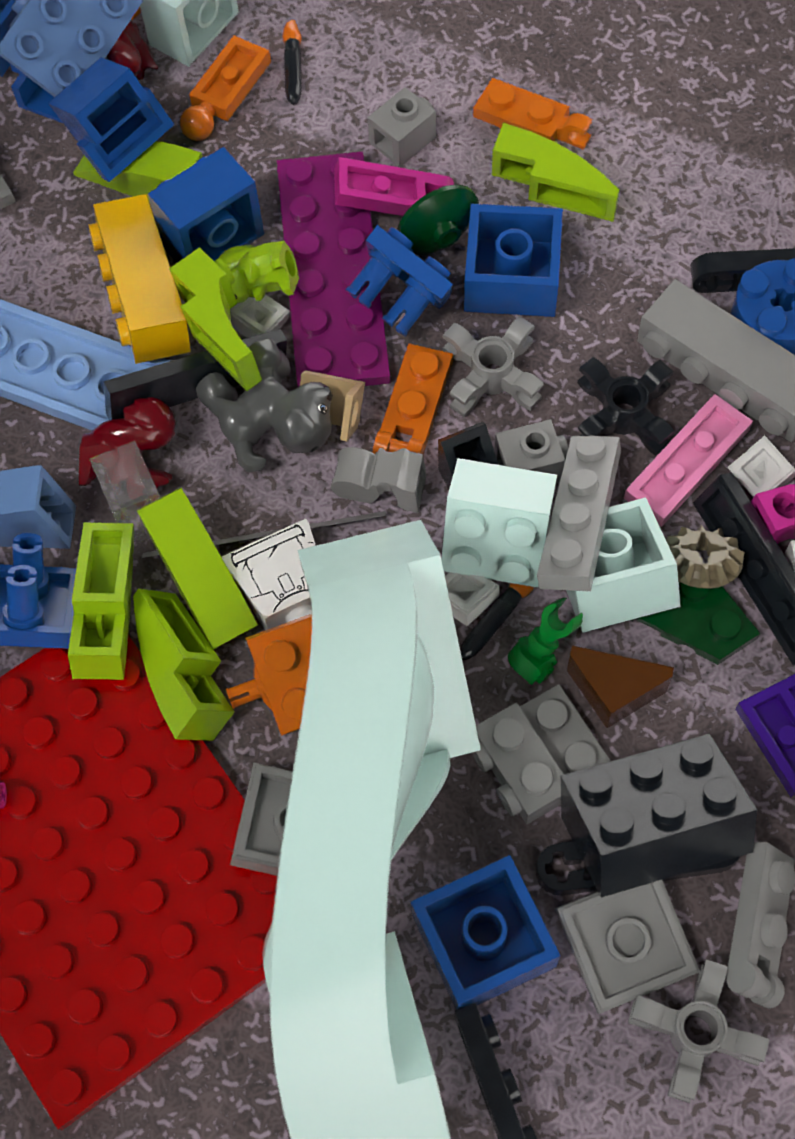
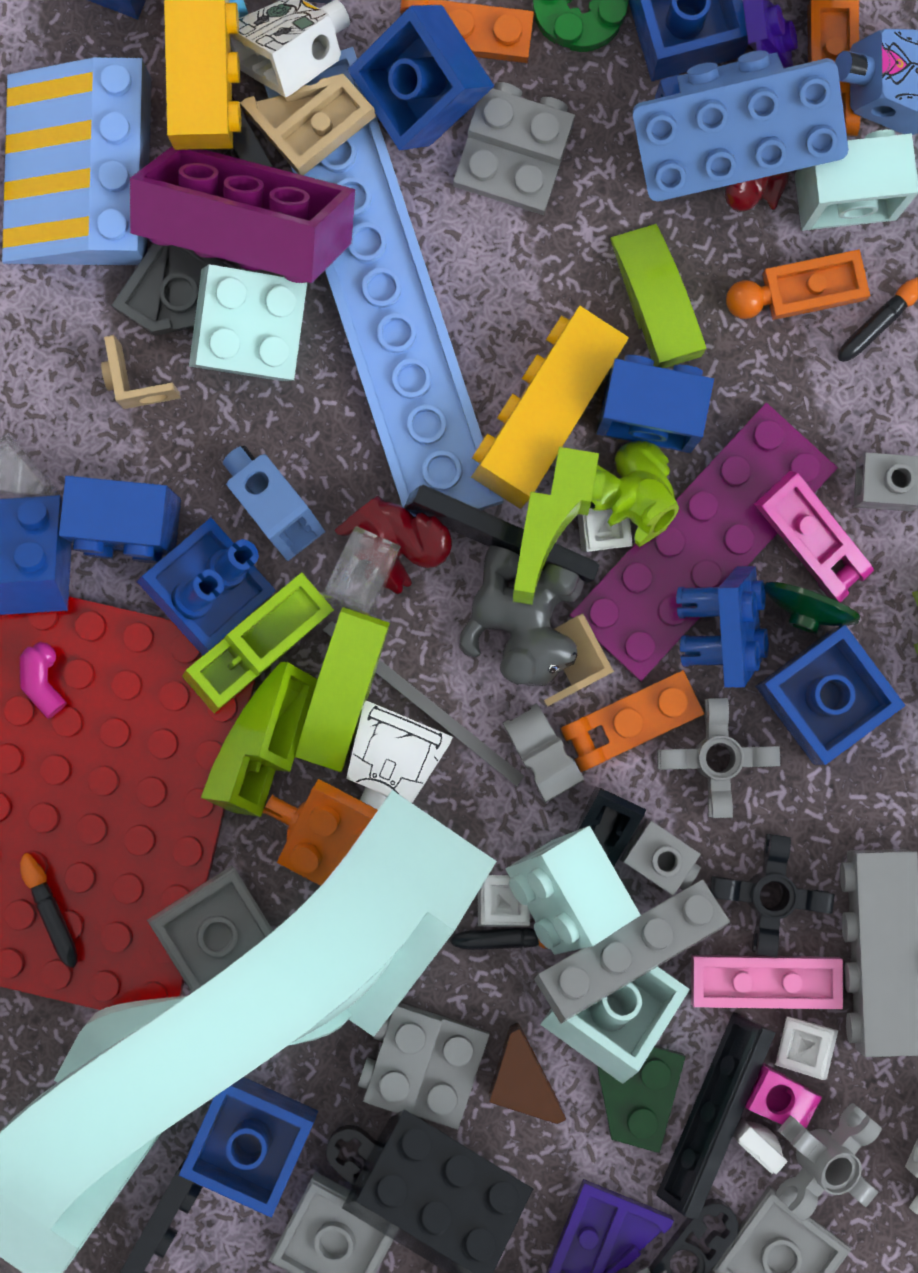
camera: 45 degrees right, 20 degrees up
(111, 116) = (666, 245): blue plate -> none
(114, 928) = (50, 913): none -> black piece
(533, 654) = (496, 998): green piece -> none
(723, 563) = (662, 1062): dark tan gear -> none

